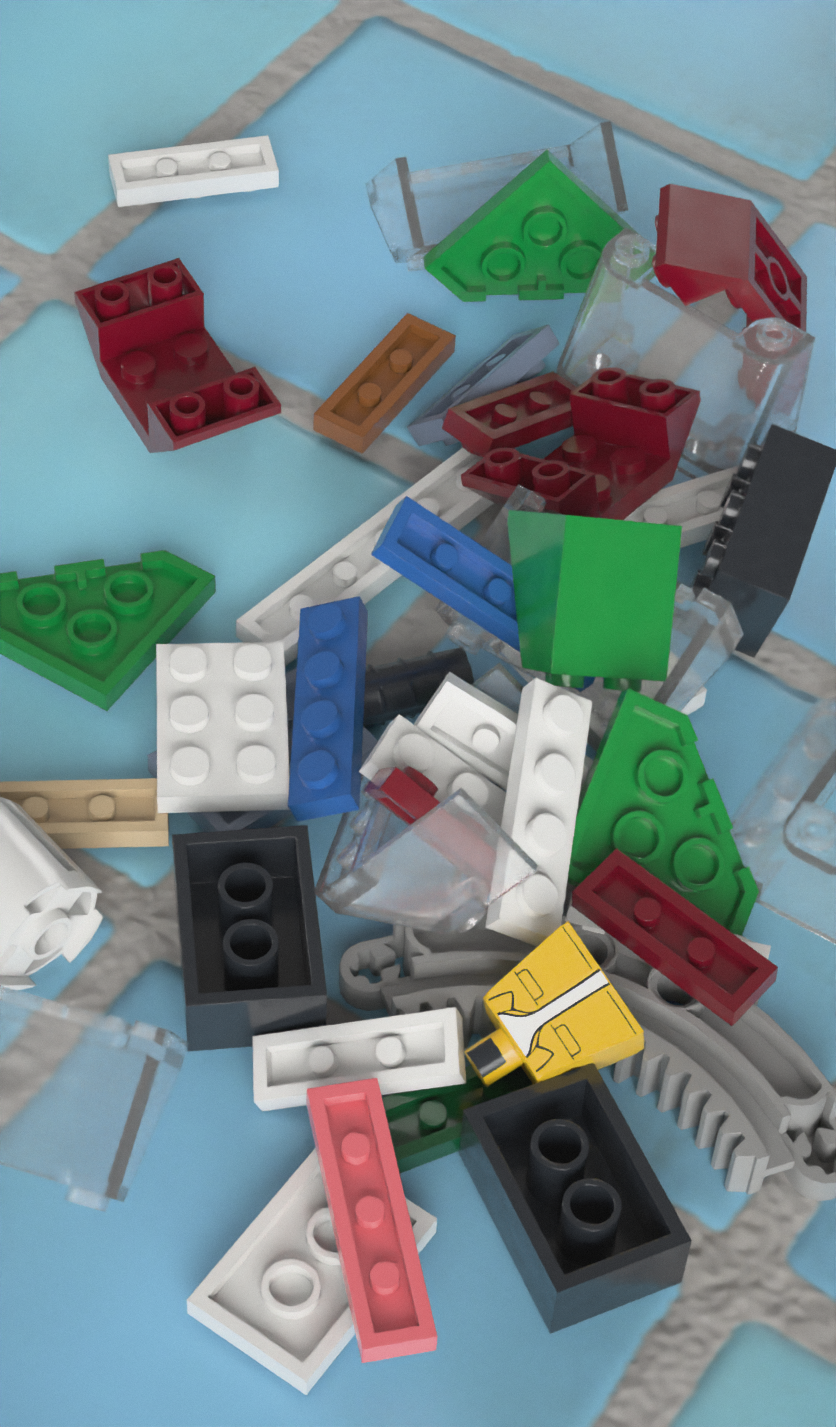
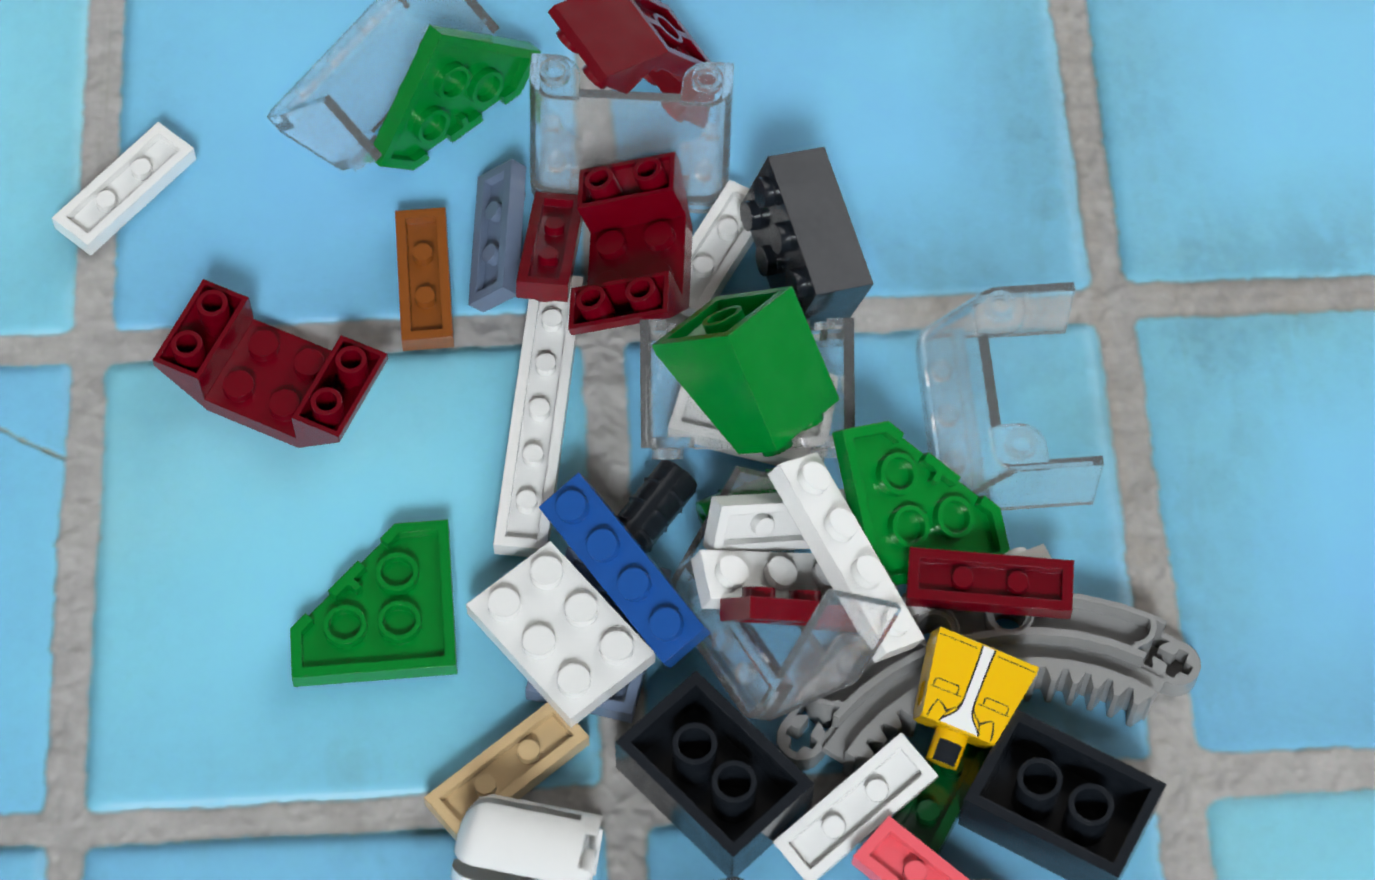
camera: 35 degrees left, 10 degrees up
(452, 569) = (645, 415): blue plate -> none

